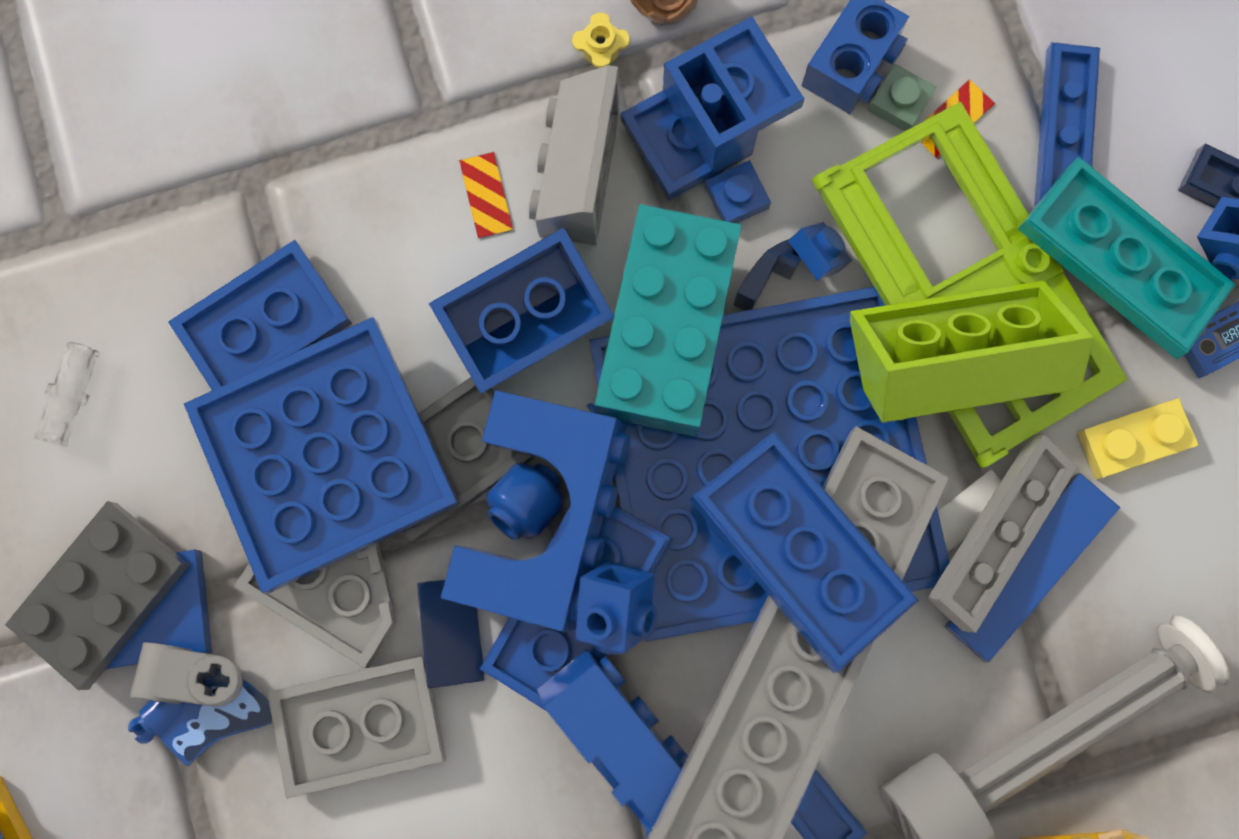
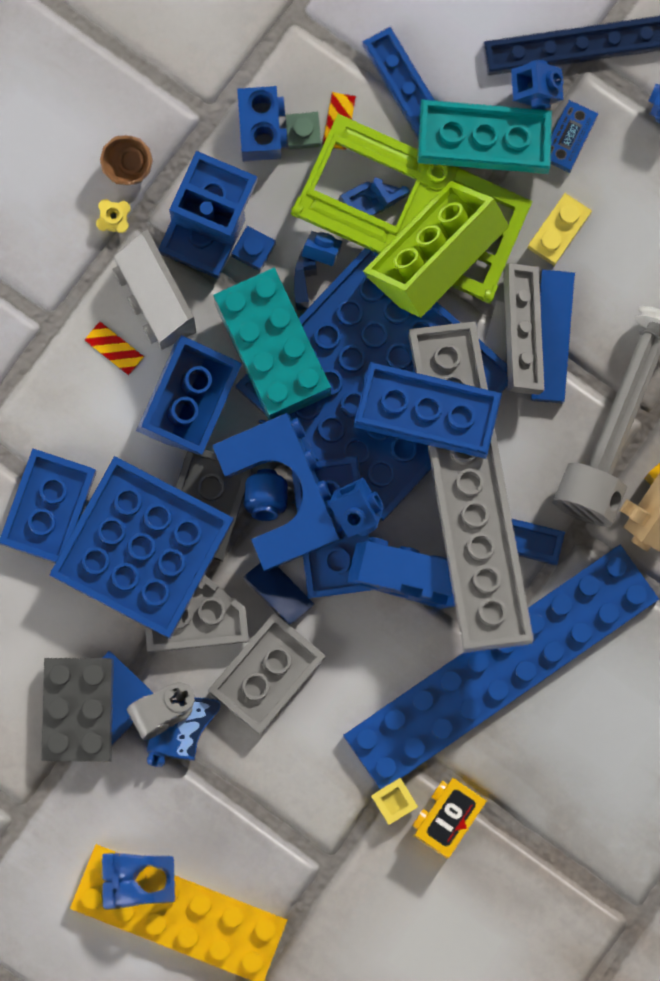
camera: 45 degrees left, 0 degrees up
(932, 236) = (374, 196): none -> blue slope

